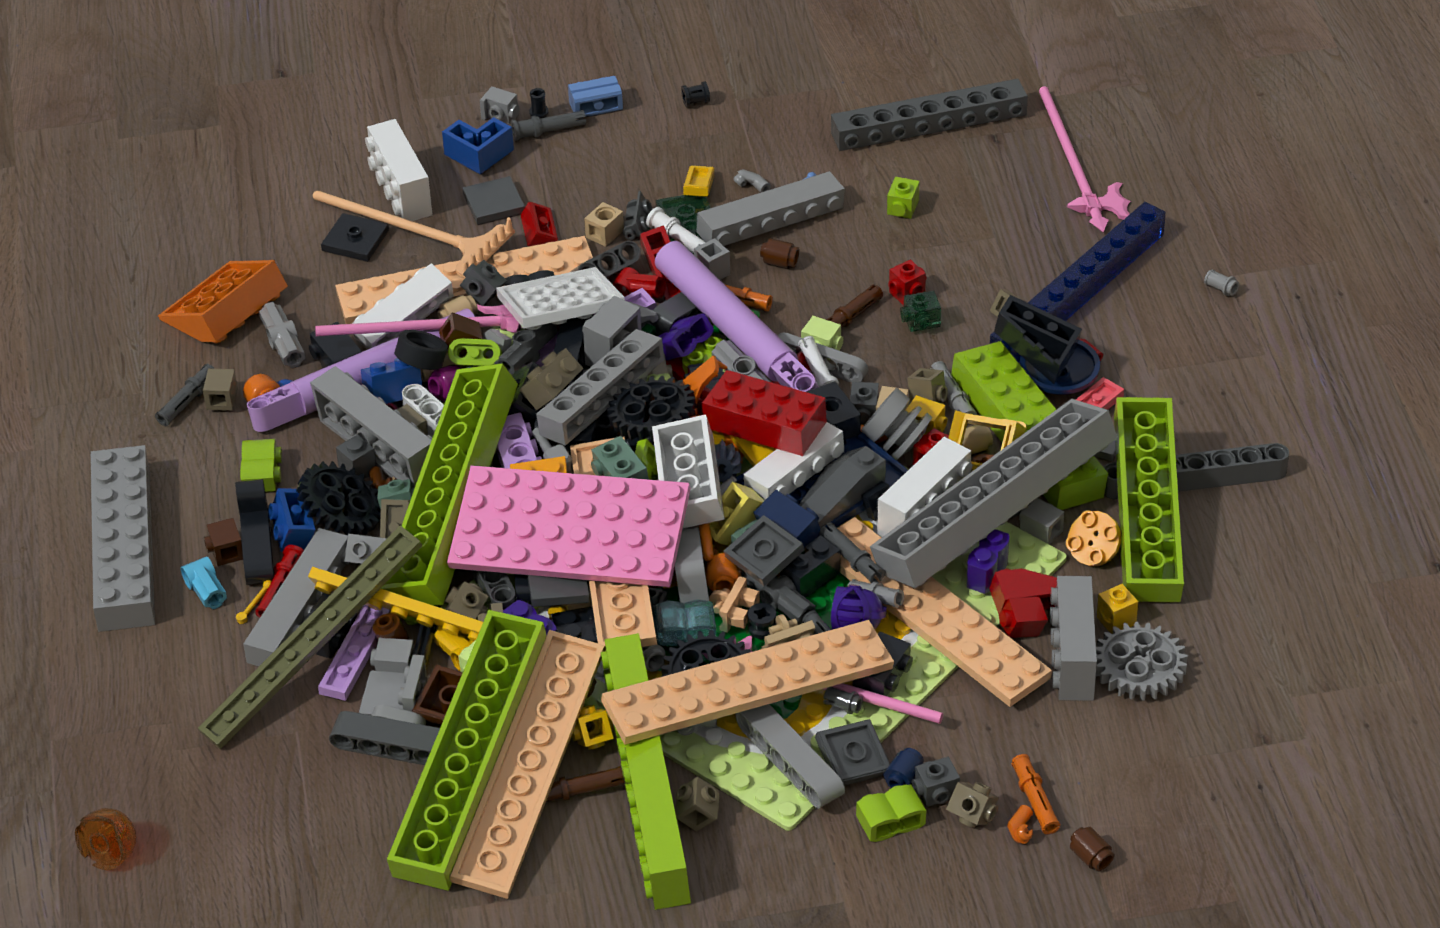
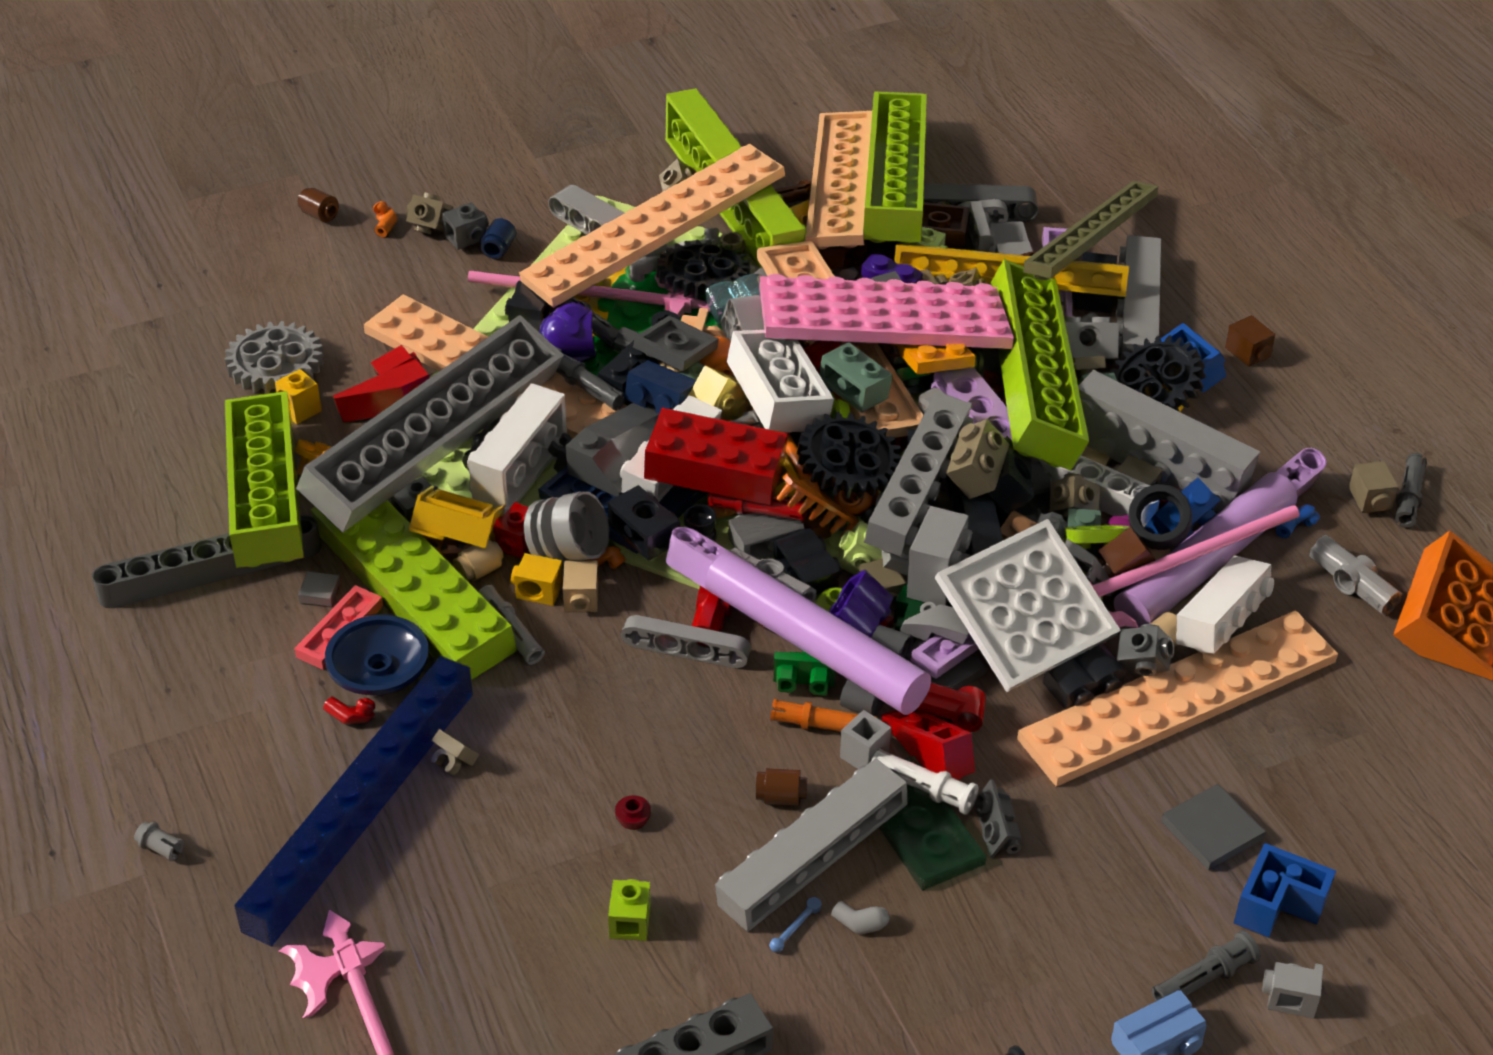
camera: 165 degrees right, 0 degrees up
(106, 837) = (1174, 97): clear orange cylinder -> none
(122, 539) = (1359, 330): light grey brick -> none
(202, 578) = (1243, 303): medium azure piece -> none
(242, 617) = (1187, 293): yellow hinge -> none
(255, 531) = (1243, 358): black beam -> none
(258, 385) = (1326, 496): orange head -> none
(261, 461) = (1270, 420): lime brick -> none
(281, 571) = (1168, 309): red pin -> none
(332, 348) = (1289, 562): black brick -> none
(355, 237) = (1362, 737): black plate -> none
(398, 171) = (1361, 813): white brick -> none
(473, 249) = (1184, 719): light nougat piece -> none
(538, 104) = (1235, 999): black pin -> none
(538, 224) = (1128, 796): red slope -> none
(604, 224) = (1038, 795): tan brick -> none
(613, 258) = (1006, 722): dark grey beam -> none
(698, 181) = (936, 896): yellow tile -> none
(787, 631) = (634, 312): tan hips -> none
(816, 362) = (667, 596): white pin -> none
(824, 332) = (689, 666): yellowish green brick -> none
(845, 314) = (669, 708): reddish brown pin -> none
(853, 751) = (545, 240): dark grey tile -> none
(865, 398) = (616, 588): dark grey brick -> none
(886, 258) = (632, 819): none -> dark red plate
(890, 813) = (508, 201): lime brick -> none
(906, 280) = (595, 759): red brick -> none
(921, 311) = (567, 714): clear green brick -> none
(928, 384) = (539, 601): dark tan brick -> none
(1031, 784) = (376, 245): orange pin -> none
(1037, 336) = (403, 636): black wedge -> none
(1073, 638) = (341, 340): light grey brick -> none

